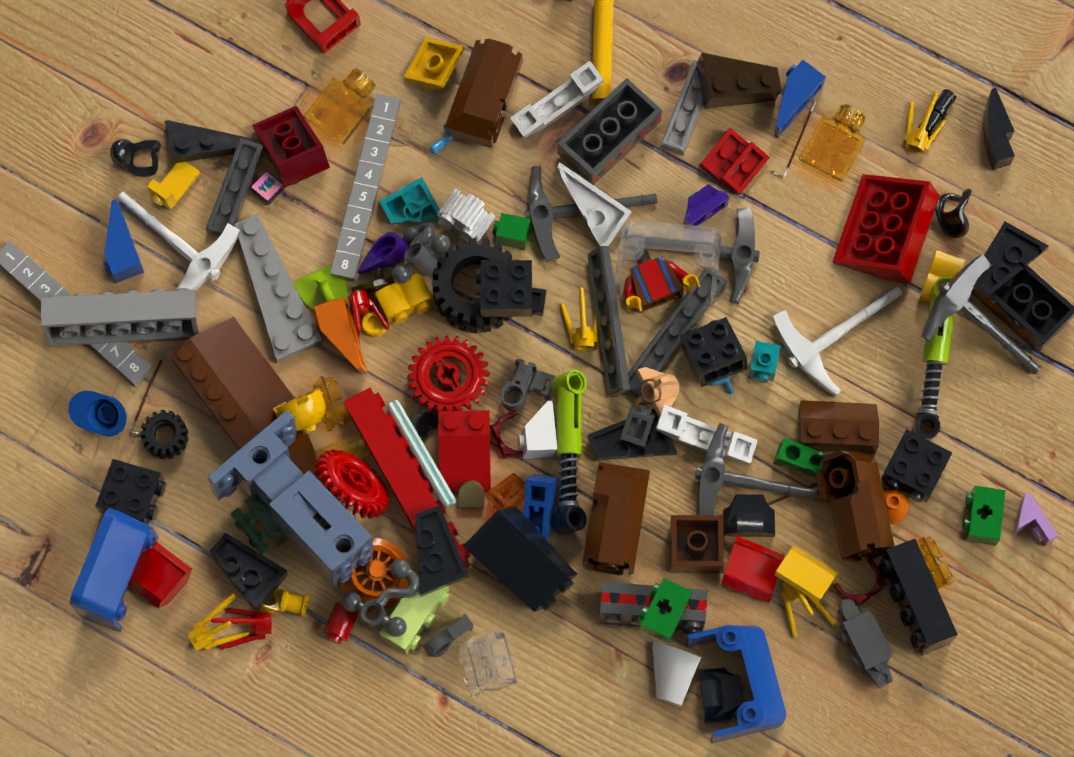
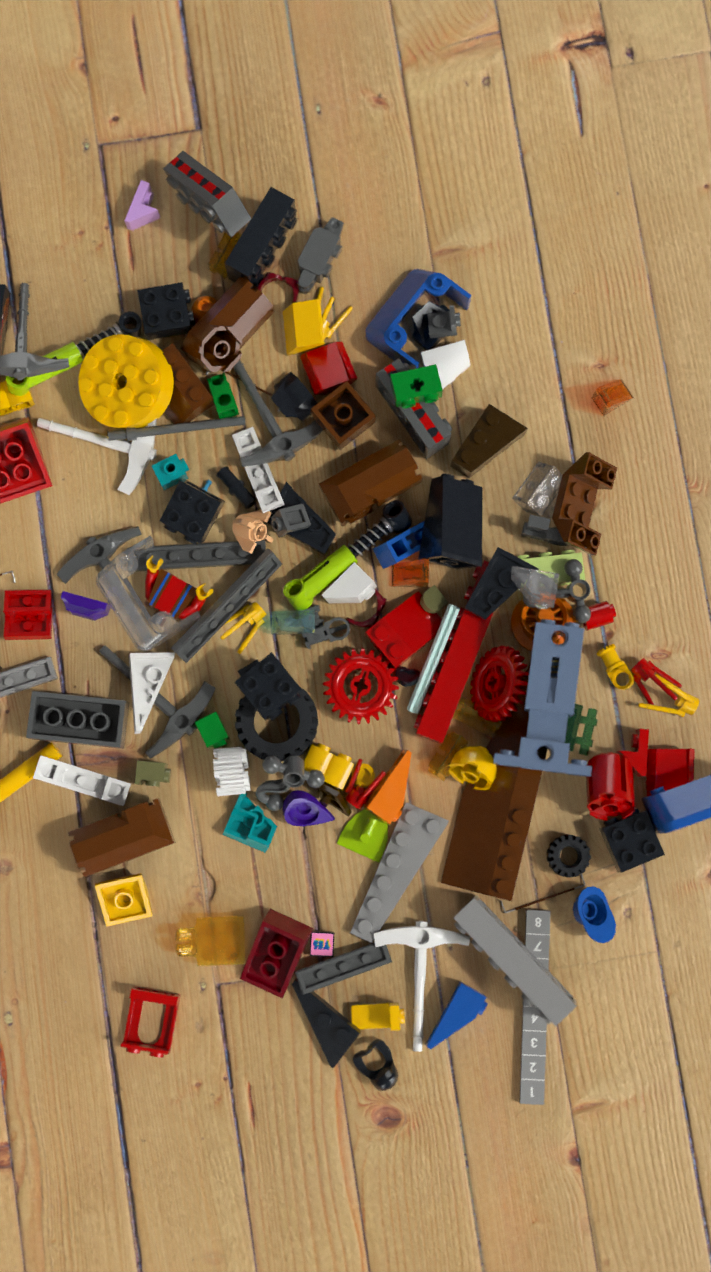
camera: 130 degrees left, 10 degrees up
(190, 506) = (610, 786): none -> red cylinder
(193, 554) = (639, 756): none -> red slope
(248, 570) = (616, 708): black wing -> none
(365, 187) = (262, 870): light grey tile -> none
(403, 573) = (536, 586): none -> clear slope
(440, 144) = (185, 843): dark azure piece -> none
(449, 679) = (577, 499): none -> reddish brown slope
(518, 158) = (152, 773): none -> olive brick
(548, 362) = (293, 622): none -> clear light blue slope
(574, 653) = (487, 439): none -> dark brown wedge
(707, 408) = (236, 487): none -> black pin
(710, 696) = (444, 323): none -> dark grey bracket
(823, 354) = (133, 433): none -> dark grey bar
(873, 379) = (104, 386): none -> yellow brick
(992, 503) = (168, 232): green brick -> none
(994, 573) = (206, 194): none -> dark grey brick

